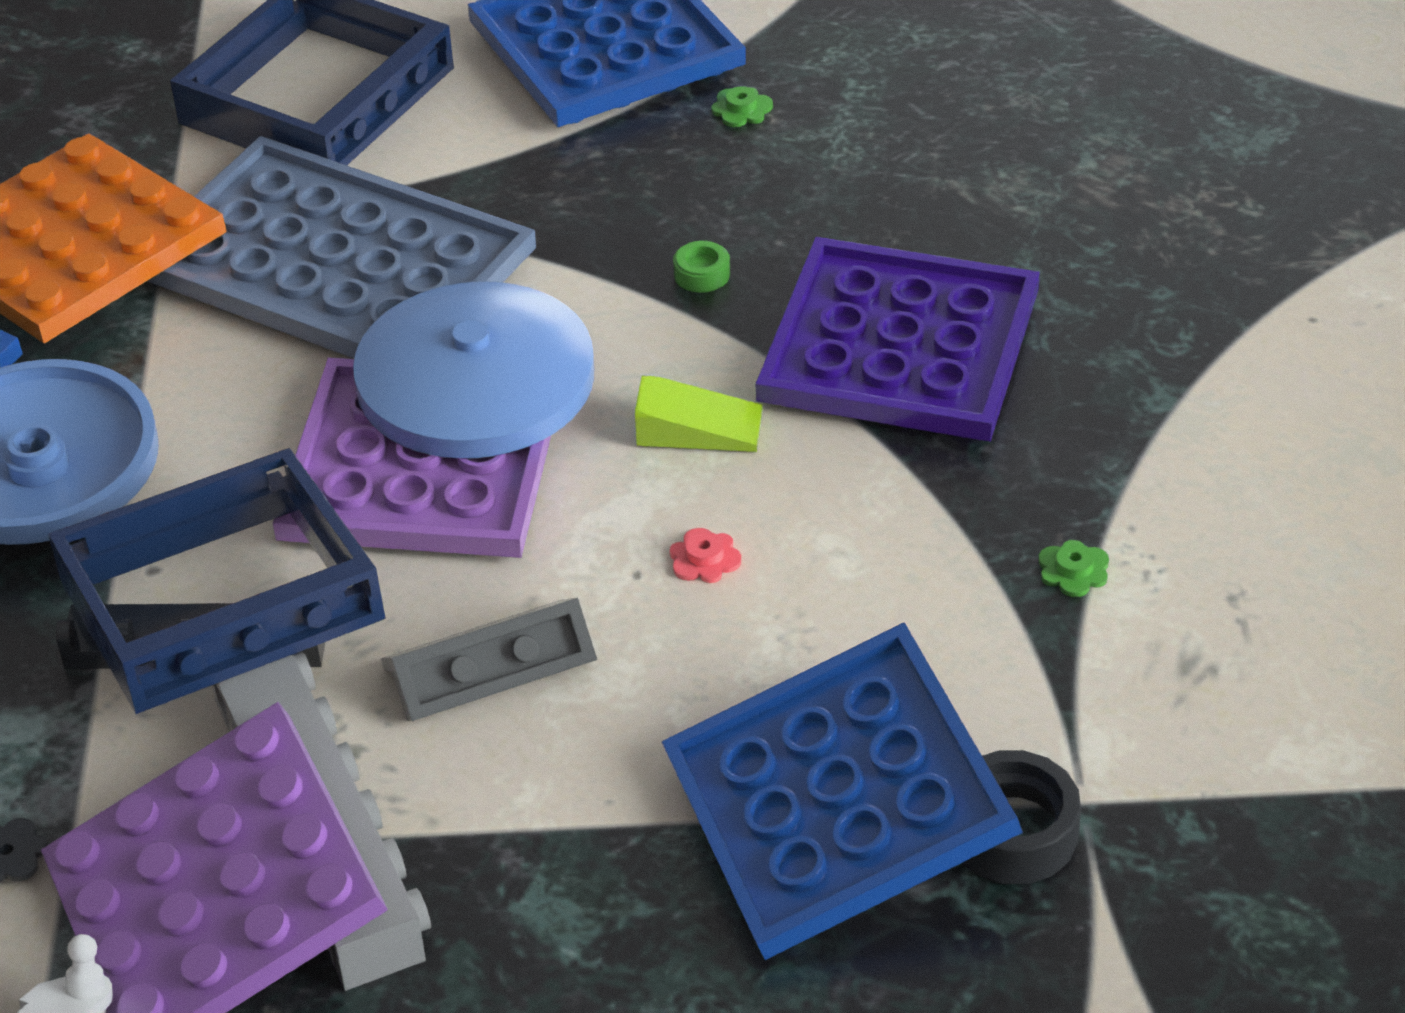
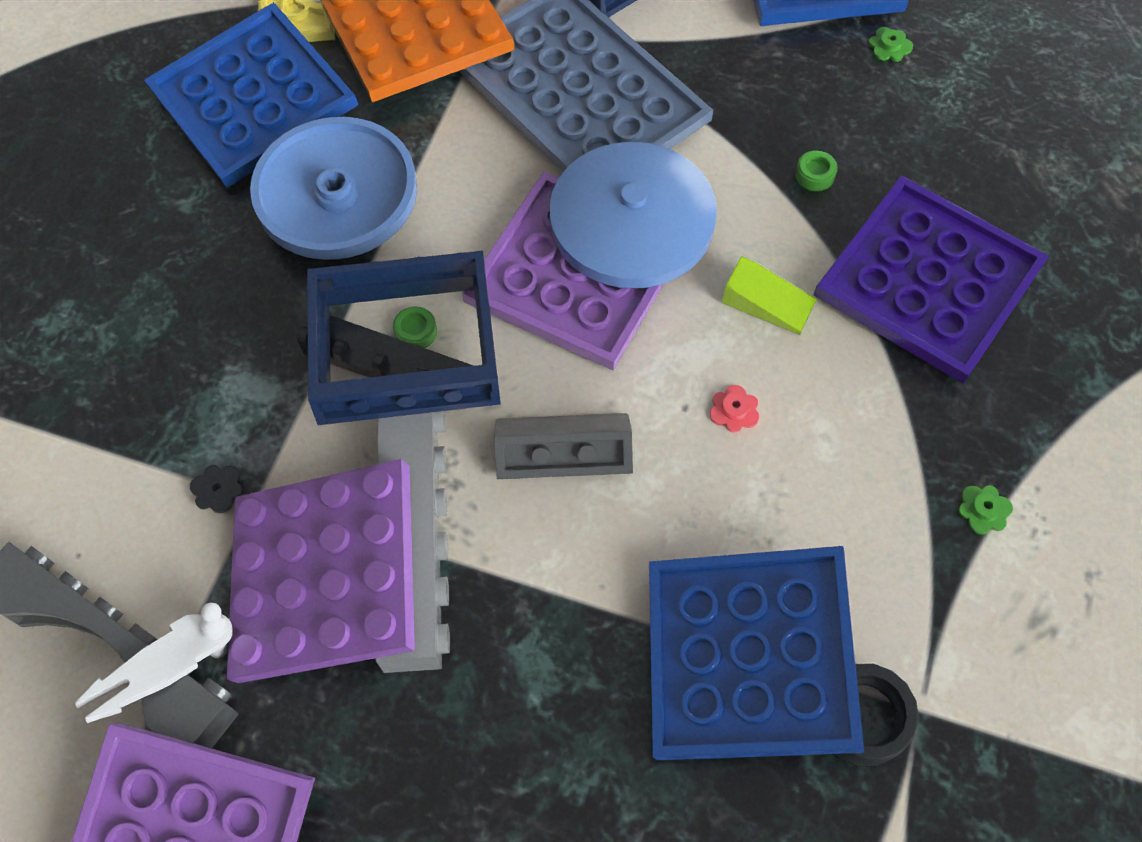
camera: 20 degrees right, 20 degrees up
(218, 583) = (415, 326): none -> bright green tile

